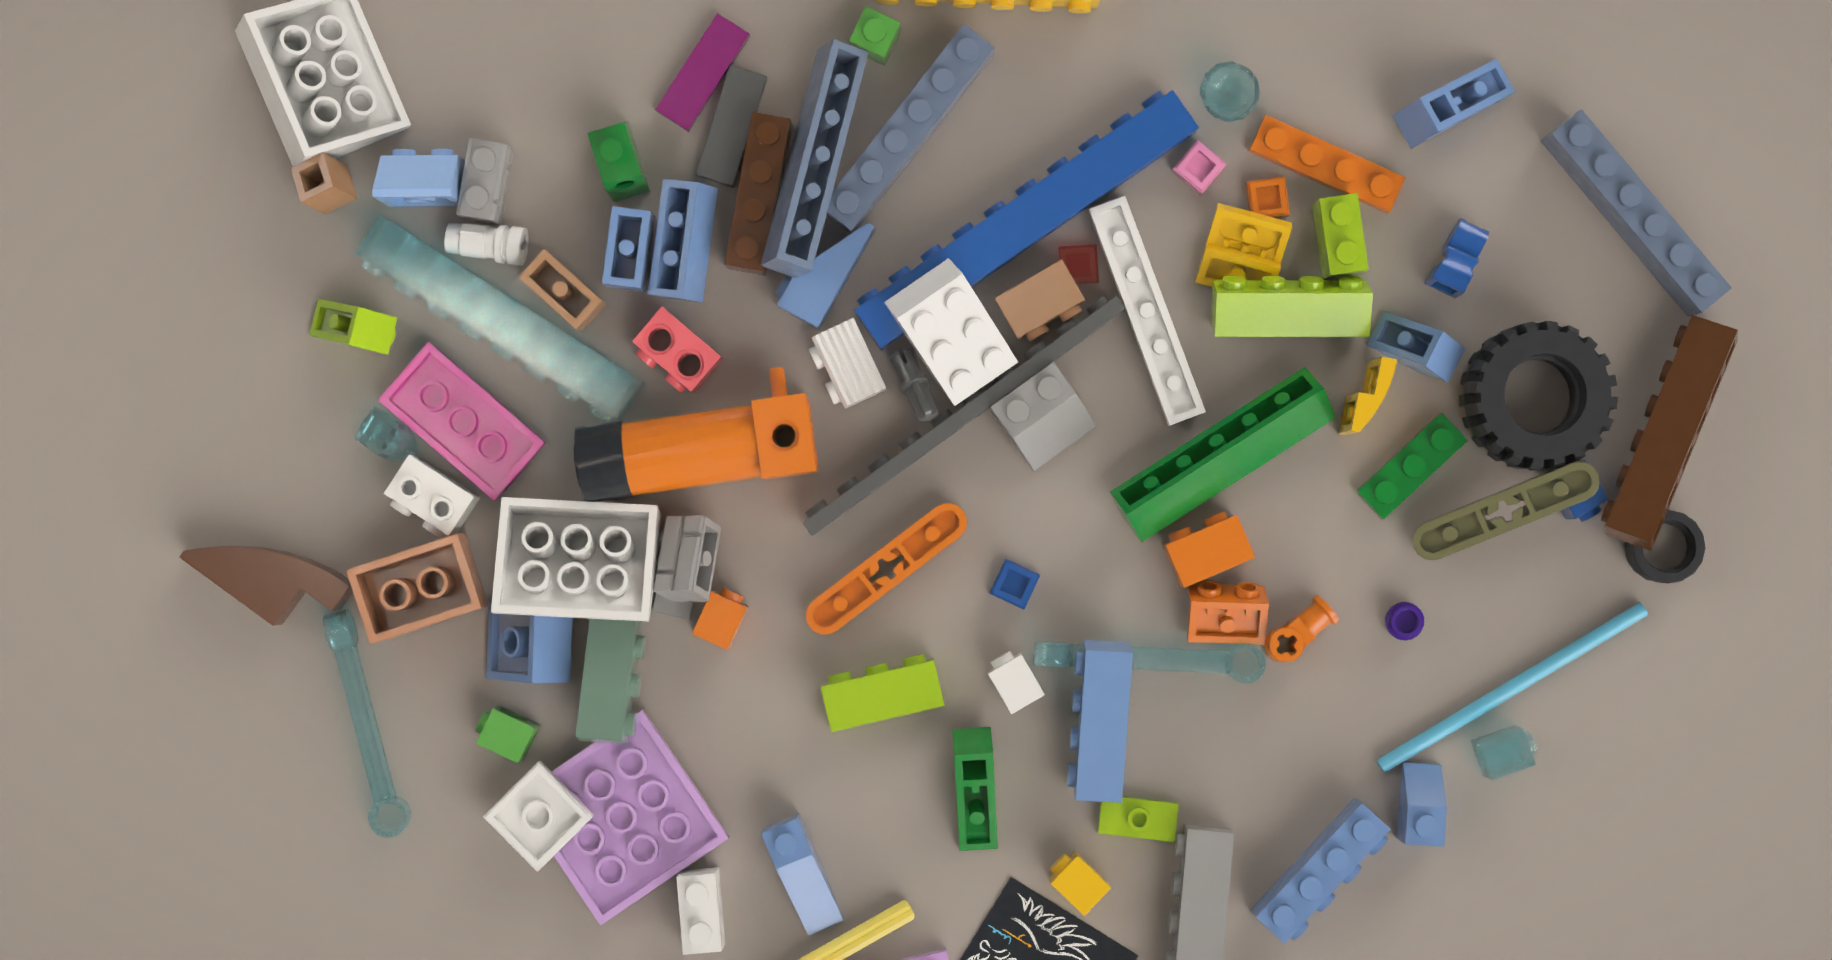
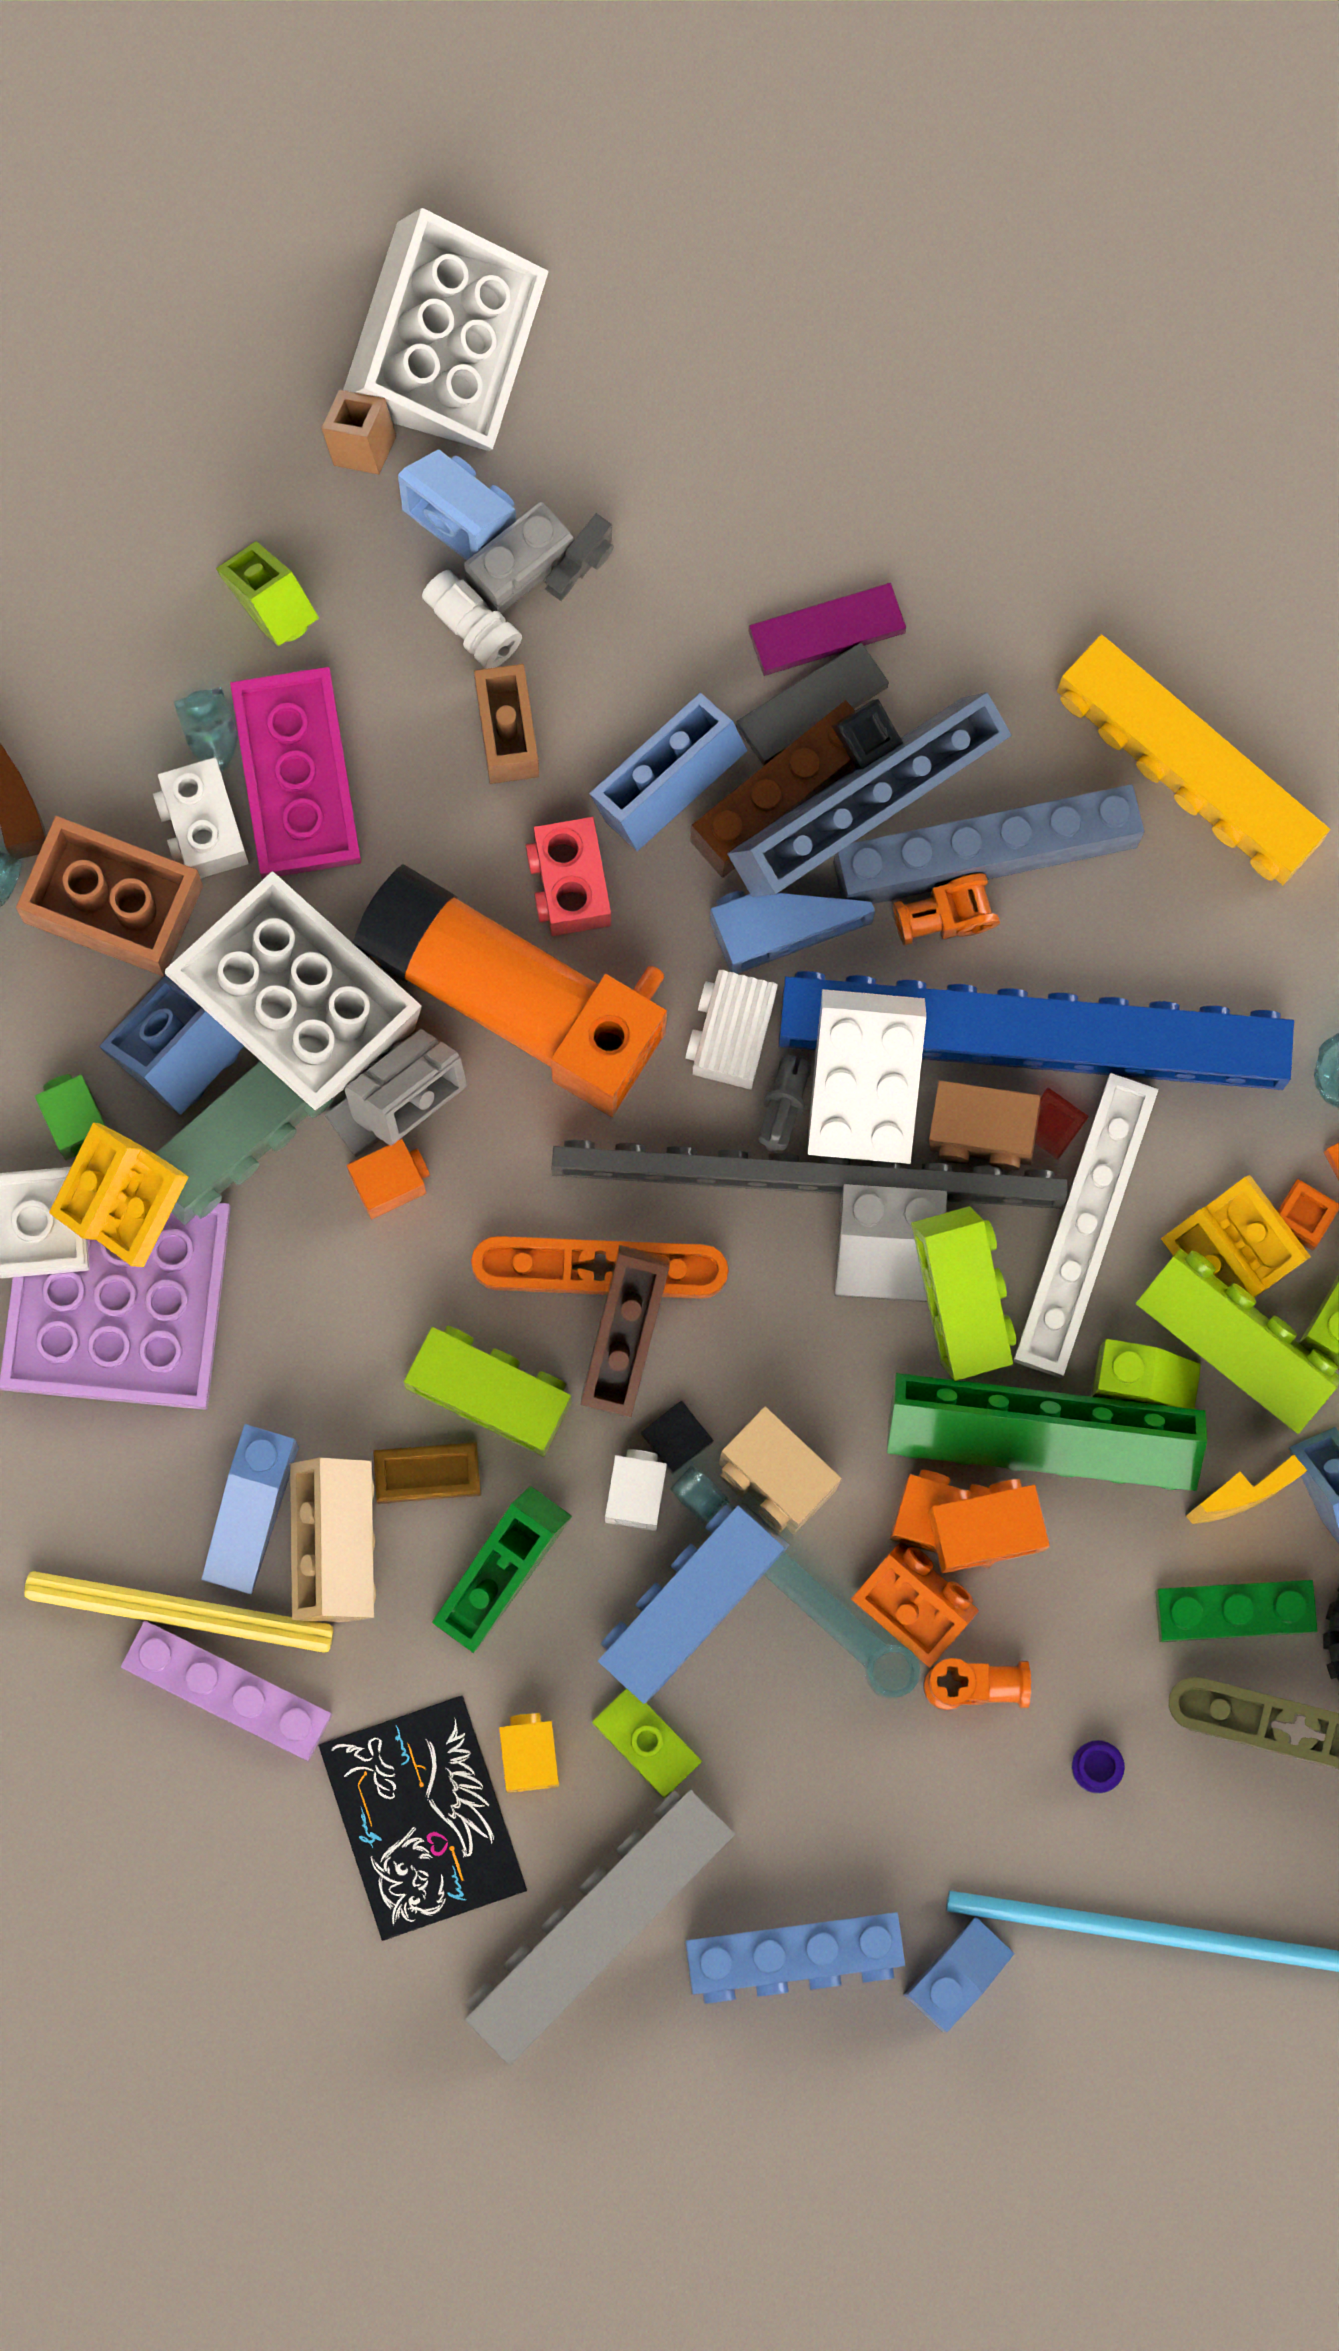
camera: 30 degrees right, 10 degrees down
(499, 318) = (419, 702): clear light blue brick -> none
(521, 142) = (588, 550): none -> dark grey plate
(576, 764) = (118, 1194): none -> yellow slope
(618, 161) = (671, 639): green torso -> none
(628, 249) = (606, 736): medium blue brick -> none
(700, 910) = (114, 1457): white brick -> none
(783, 123) = (867, 734): none -> black tile
(866, 855) = (332, 1540): none -> tan brick
(876, 35) = (1034, 728): bright green brick -> none
(885, 768) = (426, 1473): none -> pearl gold tile
(915, 186) = (953, 909): none -> orange connector
(934, 598) = (625, 1331): none -> reddish brown brick
(1011, 629) = (677, 1437): none -> black tile
(1014, 584) = (719, 1393): blue tile -> none
(1090, 606) = (777, 1472): none -> tan brick
(1112, 413) = (964, 1292): none -> lime brick
(1199, 167) = (1259, 1126): bright pink tile -> none
(1238, 541) = (988, 1526): none -> orange brick
(1253, 373) = (1145, 1375): none -> lime slope
(1504, 751) = (1094, 1992): clear light blue brick -> none

